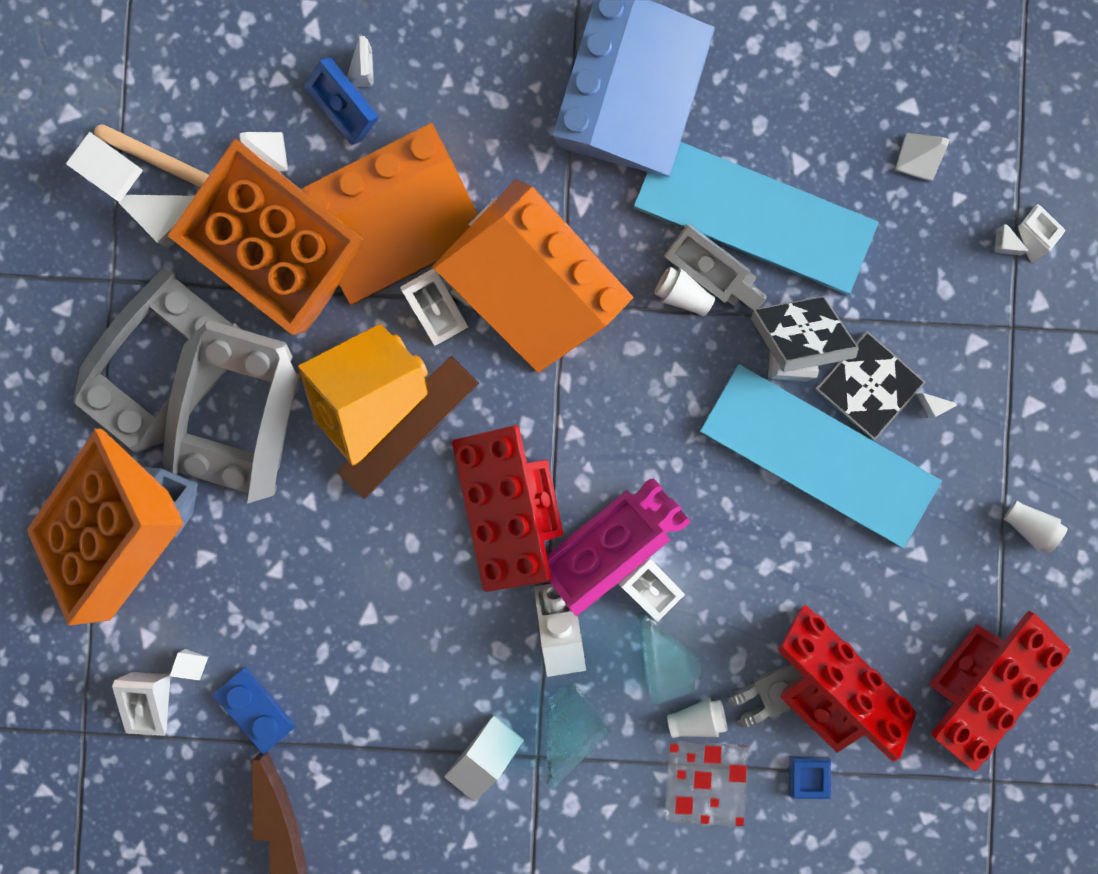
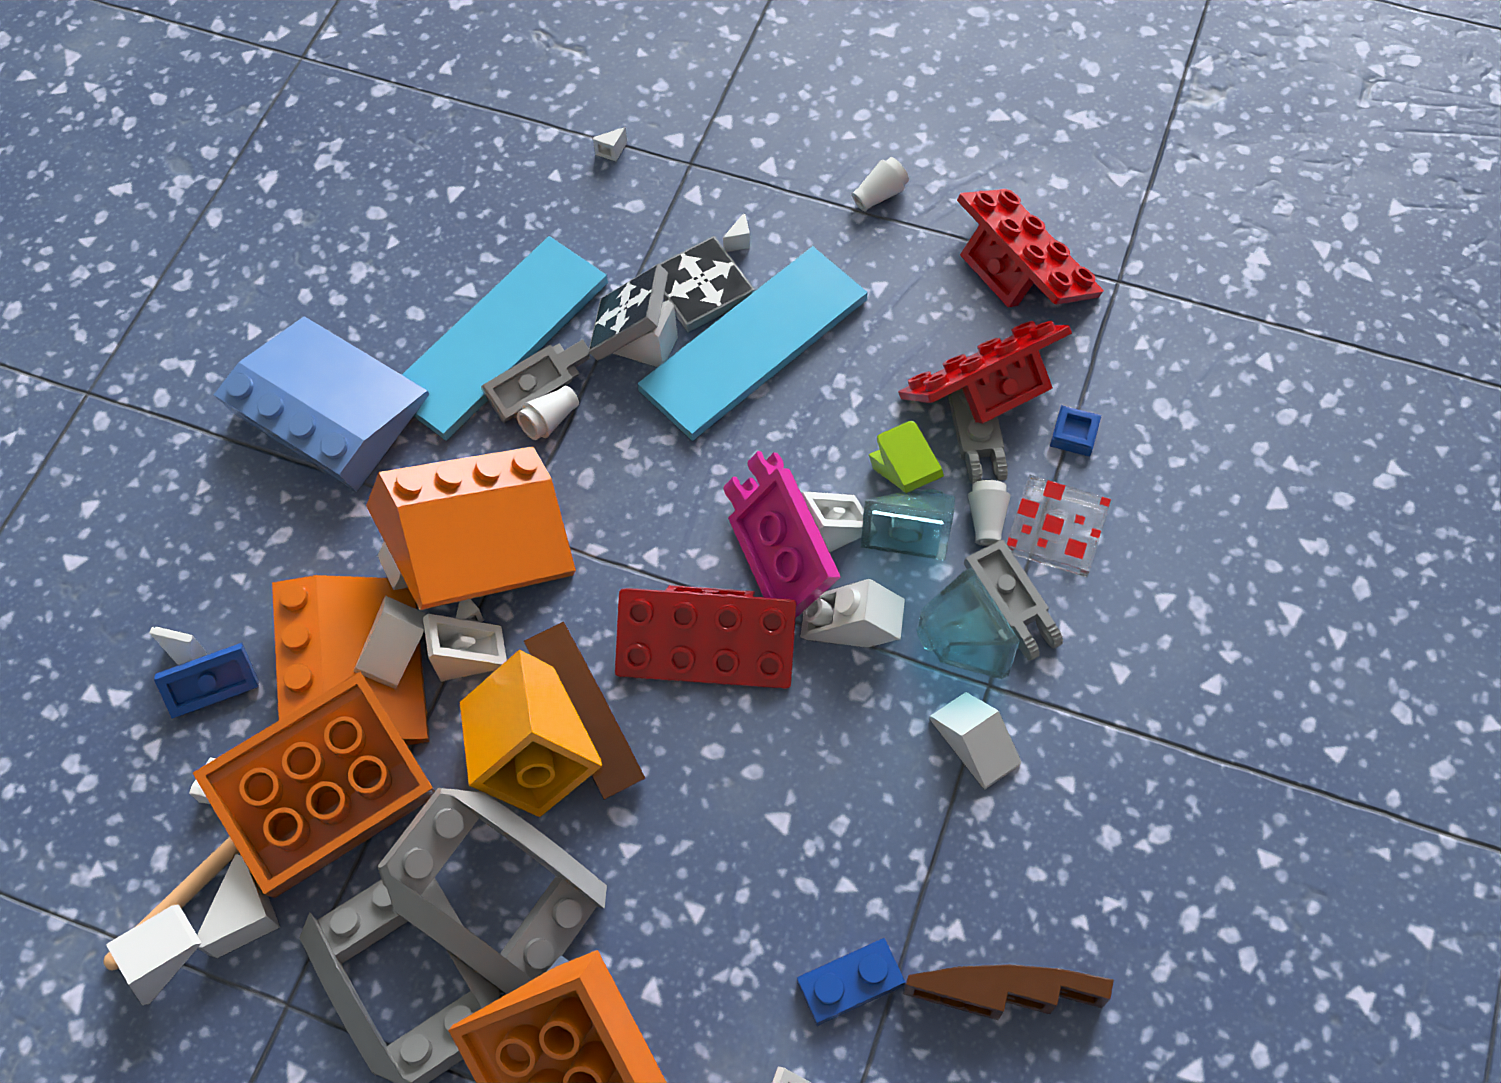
camera: 70 degrees left, 25 degrees down
(189, 665) = (773, 1044): white piece -> none
(415, 244) = (391, 642): none -> white slope
(622, 759) = (1014, 596): none -> light grey hinge
(719, 638) = (905, 458): none -> lime slope
(921, 155) = (502, 190): white slope -> none
(1039, 233) = (613, 118): white slope -> none

